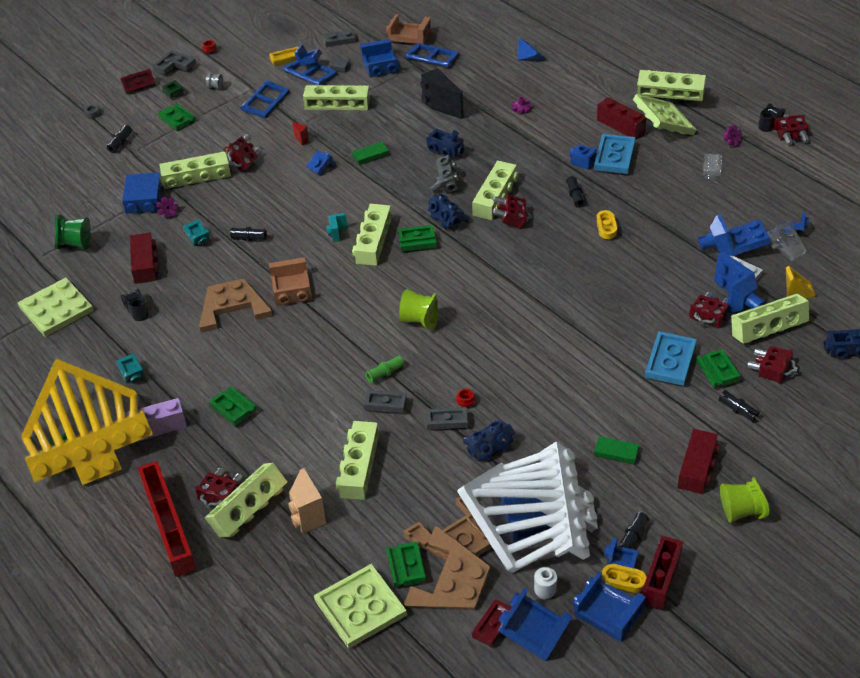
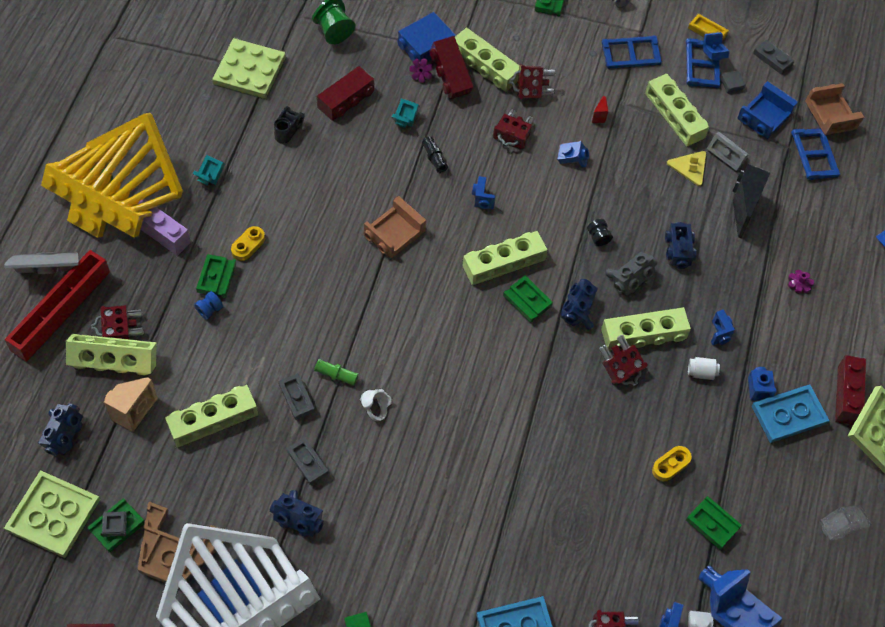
camera: 50 degrees right, 15 degrees up
(116, 509) = (43, 262): none -> light grey panel
(186, 186) = (451, 67): none -> dark red brick
(219, 375) = (249, 242): none -> yellow plate
(229, 298) = (345, 190): medium nougat wing -> none
(256, 421) = (208, 305): none -> blue wheel
(270, 183) = (513, 130): none -> dark red piece
(285, 562) = (61, 428): none -> dark blue brick
(308, 223) = (482, 200): none -> blue bracket
(336, 222) = (491, 218): teal bracket -> none
(370, 153) = (621, 187): green tile -> none
(386, 114) = (690, 166): none -> light yellow piece
(393, 89) = (727, 151): none -> light grey hinge
(398, 177) = (600, 234): none -> black wheel
(406, 560) = (114, 524): none -> dark grey tile
(419, 309) = (424, 357): lime hat -> none
(430, 353) = (383, 399): none -> white piece
(459, 581) = (121, 581): medium nougat wing -> none
(465, 398) = (344, 457): red plate -> none
(525, 153) = (724, 328): none -> blue bracket
(548, 176) = (703, 368): none -> white brick
(575, 191) = (700, 406): black pin -> none
(666, 224) = (713, 522): none -> green plate

